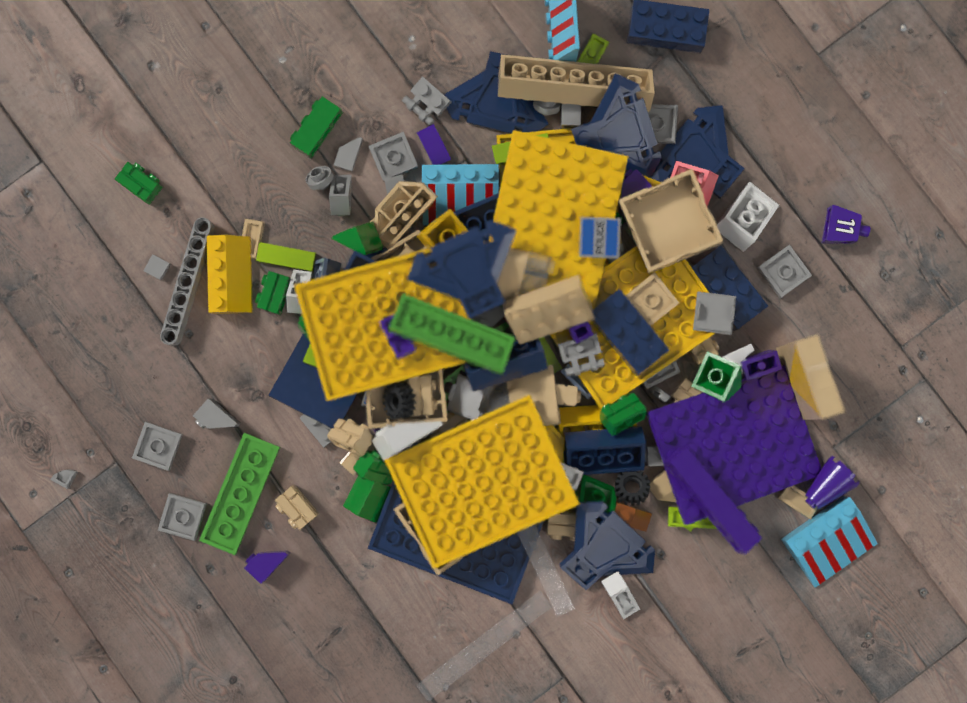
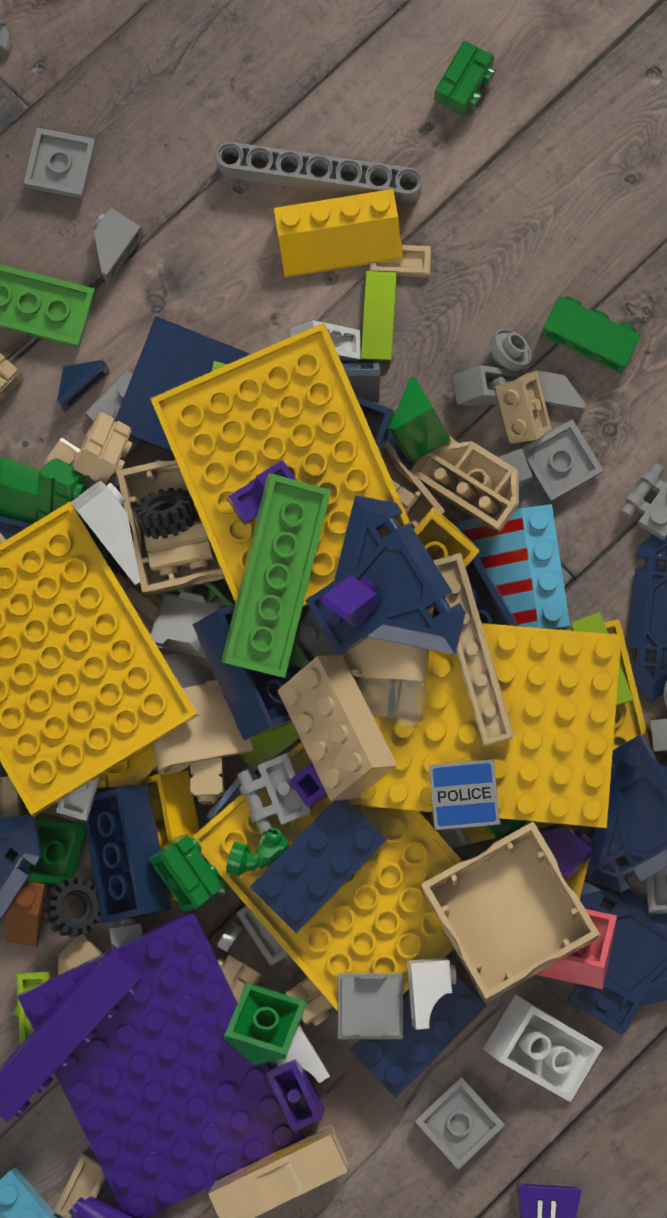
camera: 85 degrees right, 5 degrees down
(157, 267) = (337, 124): light grey tile -> none
(273, 293) = (317, 302): green brick -> none
(301, 449) = (78, 380): none -> dark blue slope
(358, 174) = (523, 408): none -> tan bracket
(433, 145) = (588, 522): dark purple slope -> none
(475, 286) = (353, 600): none -> dark purple slope
(518, 219) = (476, 658): none -> tan tile
(615, 361) = (270, 848): none -> green arm
(652, 299) = (377, 897): tan plate -> none
(705, 276) = (427, 983): none -> white arch

